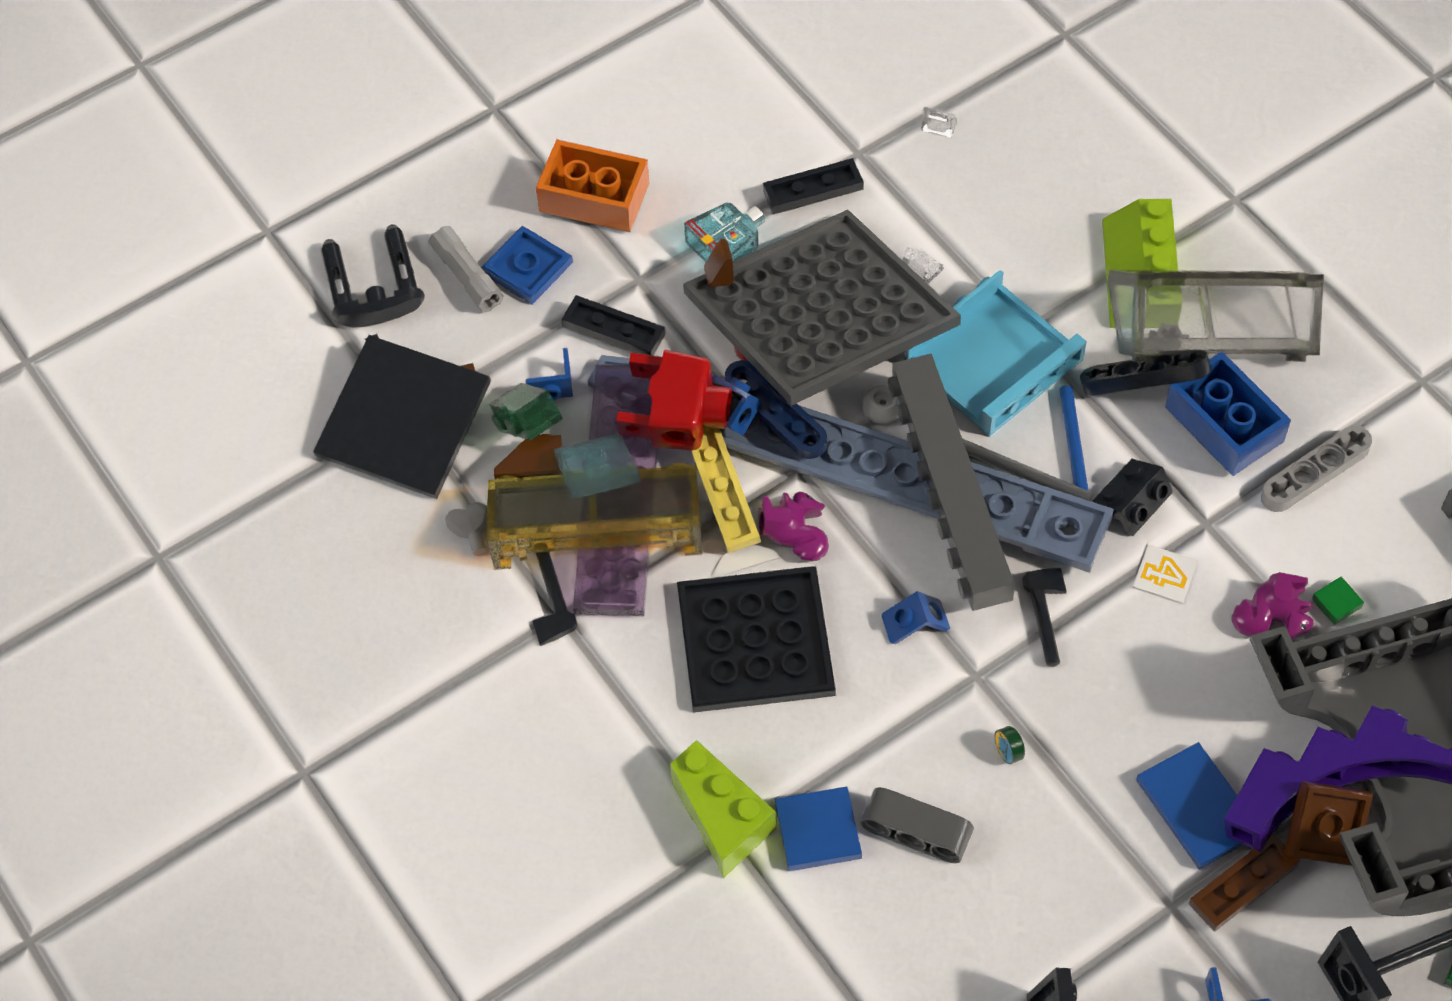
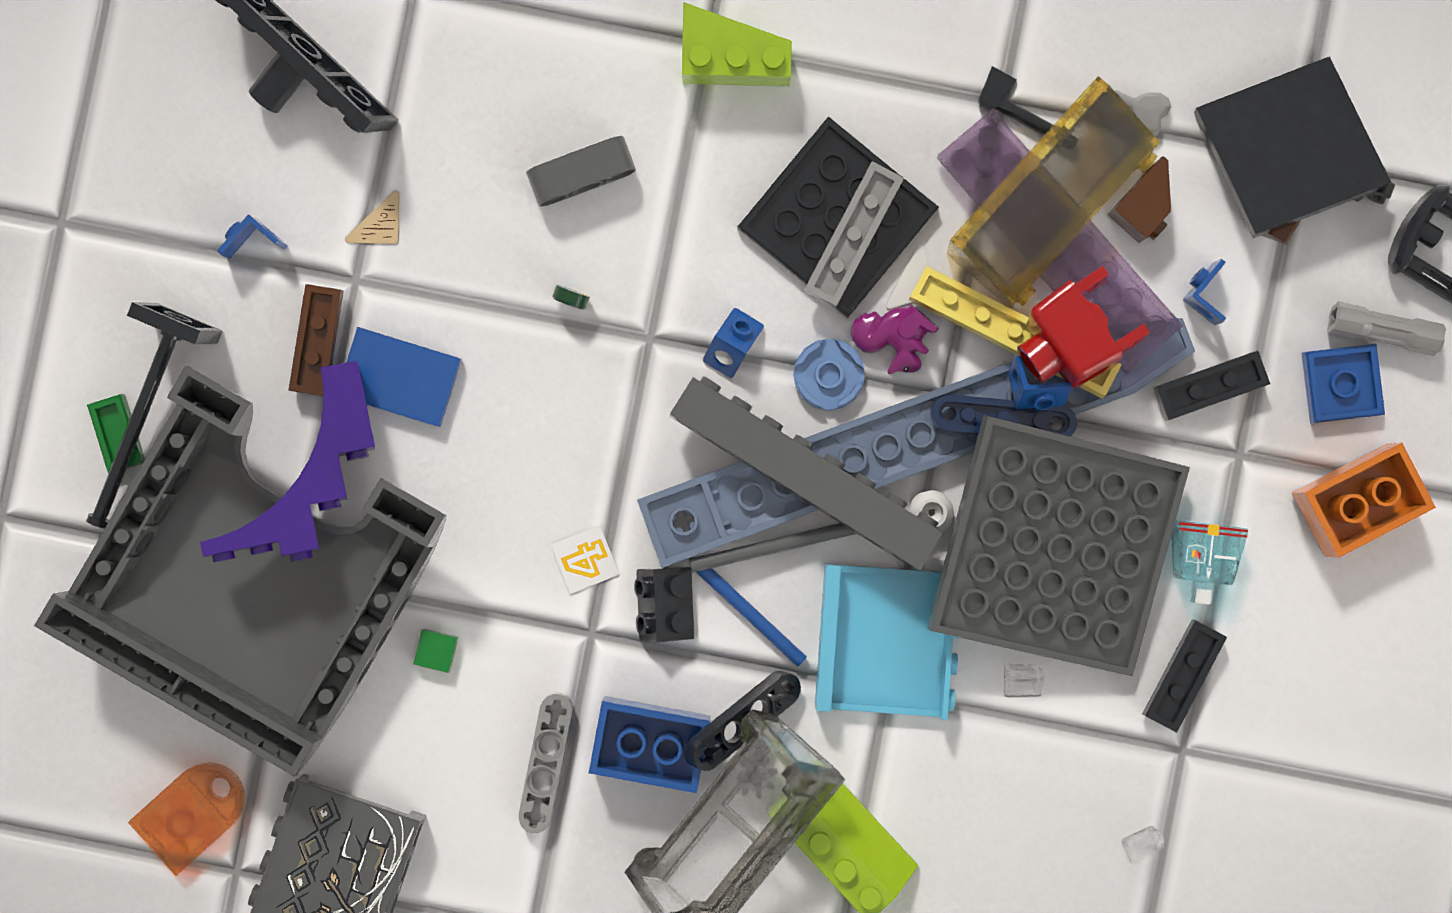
camera: 130 degrees right, 30 degrees up
(525, 411) = (1195, 230): clear green brick -> none
(596, 465) = (1086, 226): clear light blue plate -> none
(719, 265) = (1173, 506): reddish brown slope -> none
(758, 606) = (853, 234): none -> light grey plate
(818, 828) = (650, 107): blue tile -> none
(866, 545) = (829, 374): none -> medium blue tile
(1038, 584) = (671, 458): black piece -> none
(1114, 930) = (380, 225): none -> tan sticker
(1276, 601) = (480, 601): magenta animal -> none
(1321, 816) = (285, 431): reddish brown plate -> none

